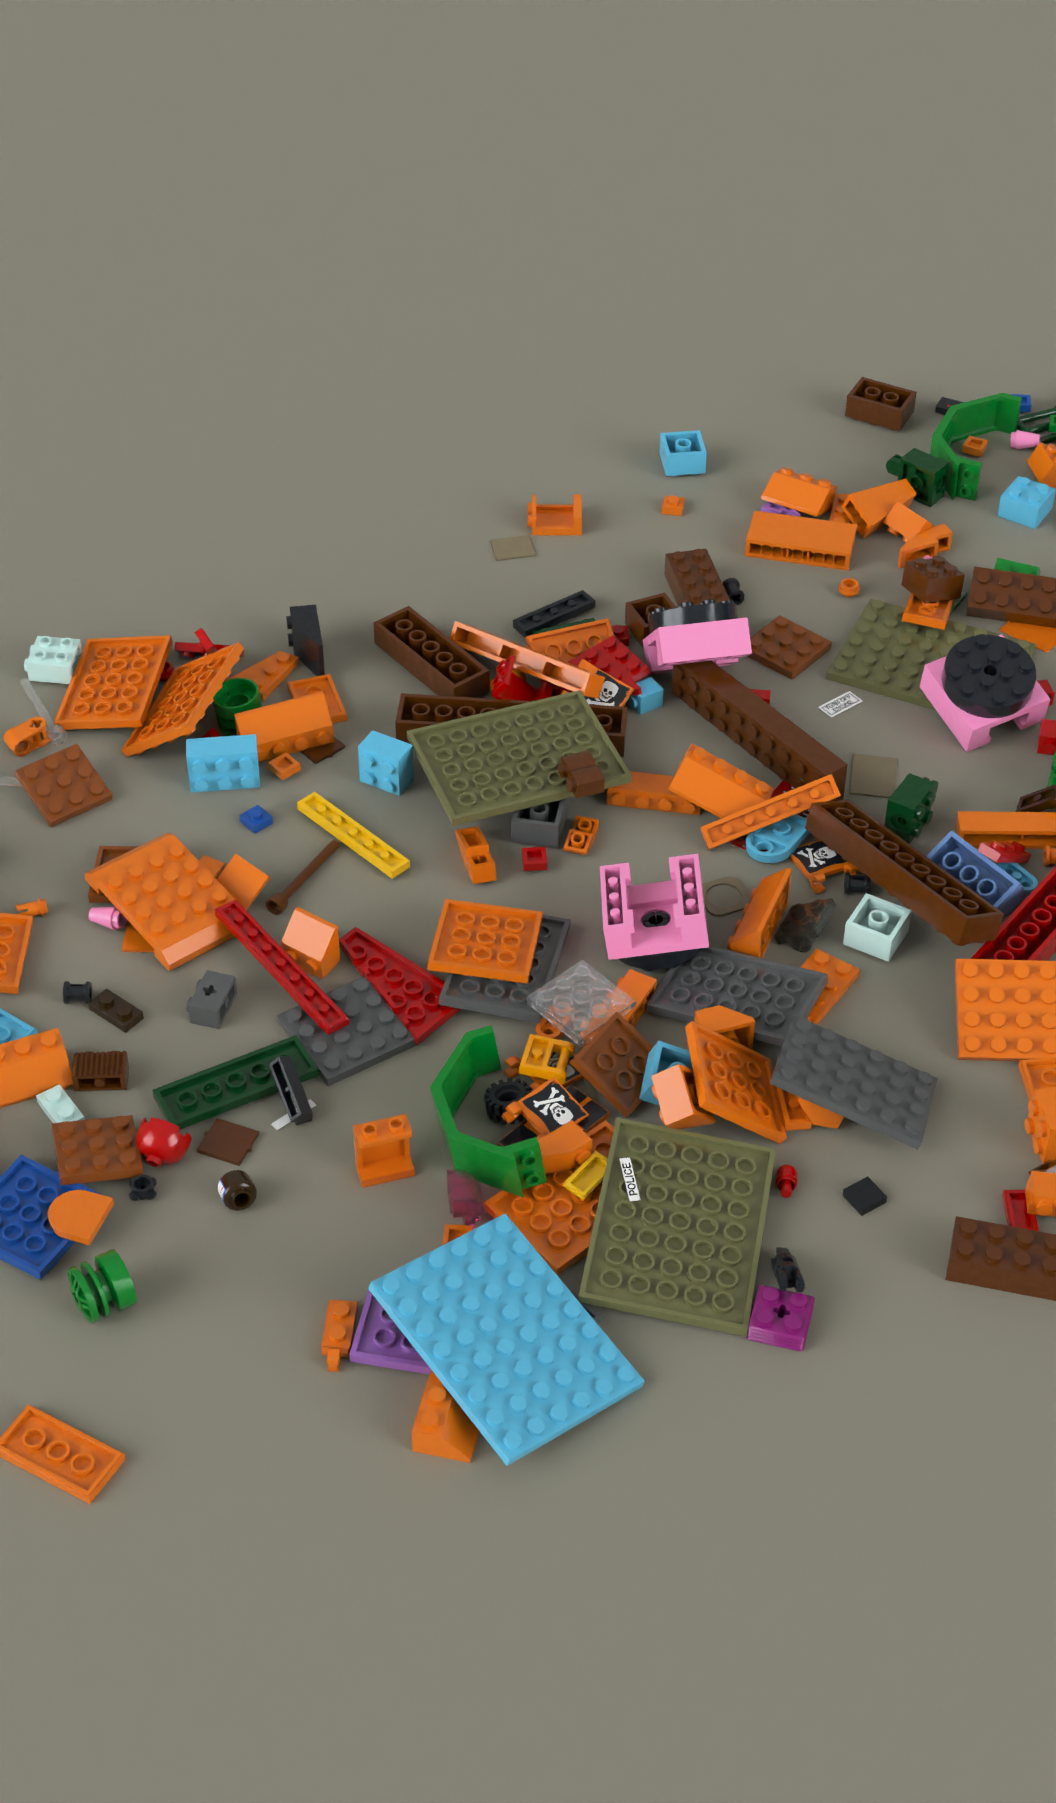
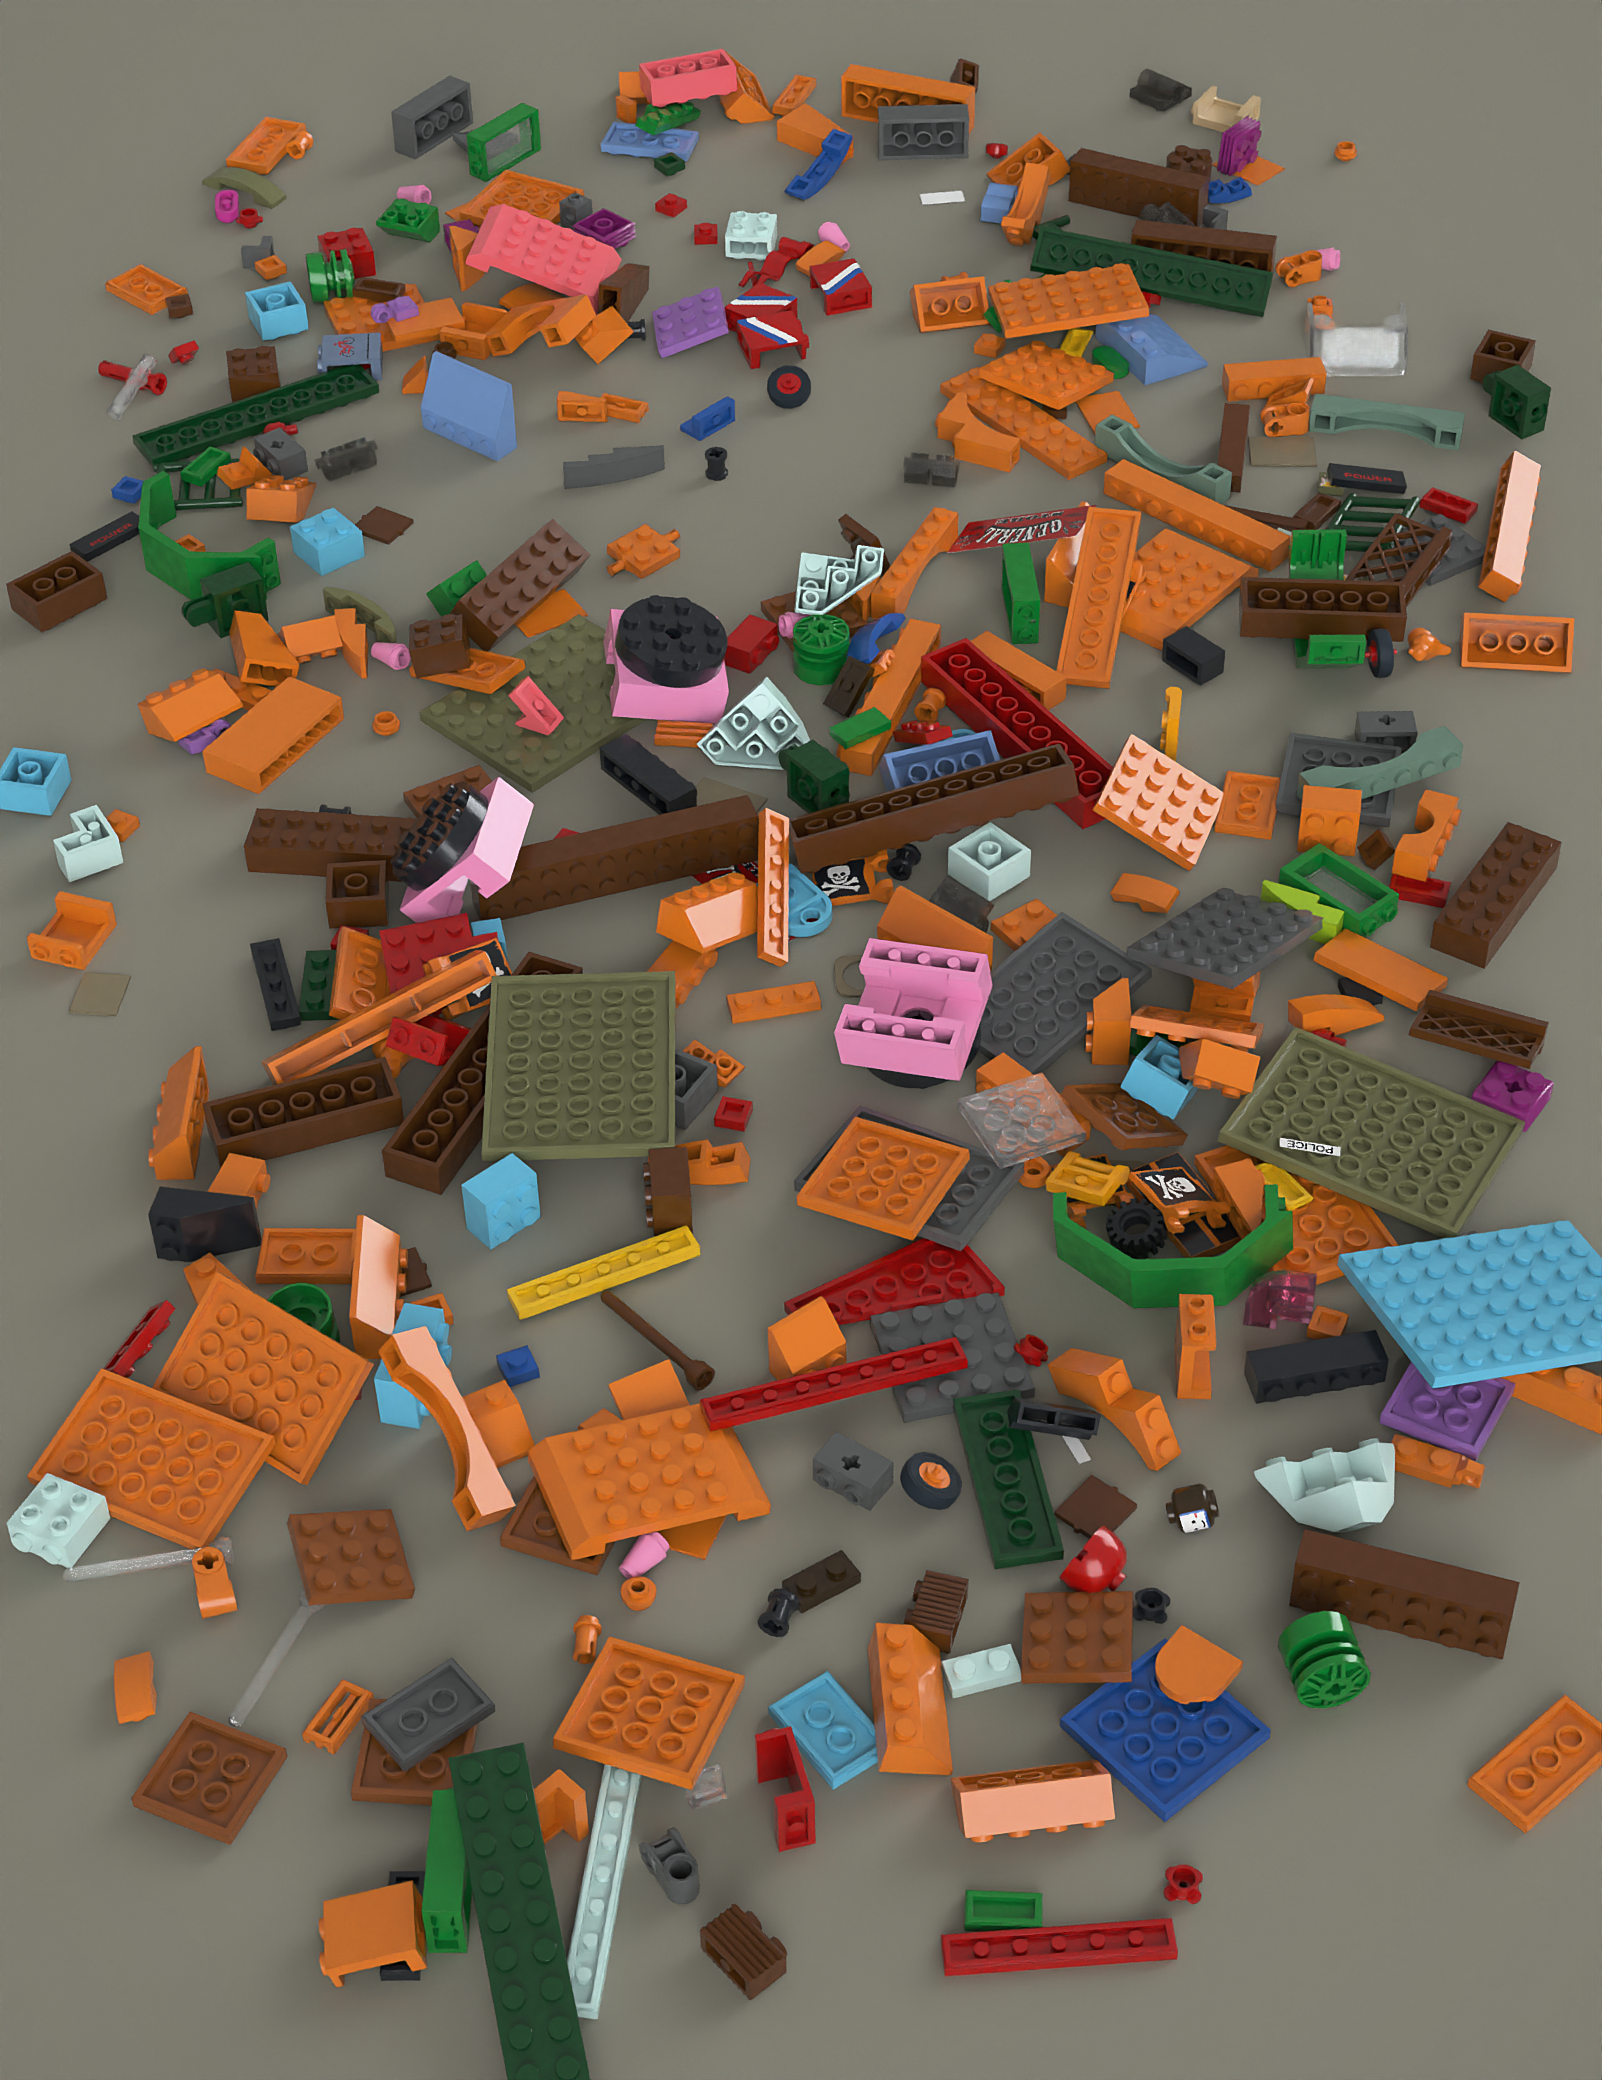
camera: 70 degrees left, 0 degrees up
(78, 924) = (638, 1600): none -> orange plate
(128, 820) = (419, 1368): none -> orange arch
(177, 1326) = (1404, 1593): none -> reddish brown brick
(191, 816) = (500, 1422): none -> orange slope
(205, 643) = (165, 1323): red plate -> none
(215, 1040) = (931, 1481): none -> black wheel
(282, 1271) = (1335, 1487): none -> light aqua brick
(305, 1131) = (1106, 1387): none -> orange arch
(351, 649) = (242, 1177): none -> orange brick
(368, 1065) = (1032, 1350): none -> red plate
(398, 1226) = (1316, 1366): none -> black brick
(428, 601) = (180, 1119): none -> orange slope
(428, 839) = (668, 1190): none -> reddish brown brick
(581, 774) = (666, 1005): reddish brown brick -> none
(635, 496) = (90, 846): none -> light aqua brick
(658, 846) = (773, 1002): none -> orange plate
(787, 1270) = (1461, 1067): black hinge -> none
(816, 1177) = (1332, 1012): none -> orange slope
(840, 704) = (585, 793): white sticker -> none
(860, 1271) = (1490, 1025): none -> reddish brown fence
(868, 726) = (647, 776): none -> black brick
(894, 642) = (537, 709): none -> coral slope
(894, 1202) = (1380, 969): none -> orange tile
(902, 1032) = (1148, 892): none -> orange slope
(935, 1137) = (1303, 900): none -> lime slope
(940, 732) = (680, 733): none -> orange tile
(956, 552) = (366, 611): none -> olive slope
(958, 766) = (755, 730): none -> light aqua brick
(975, 1154) = (1344, 887): none -> green window
(983, 814) = (860, 728): none -> green tile
(1024, 439) = (206, 508): bright pink cone -> none

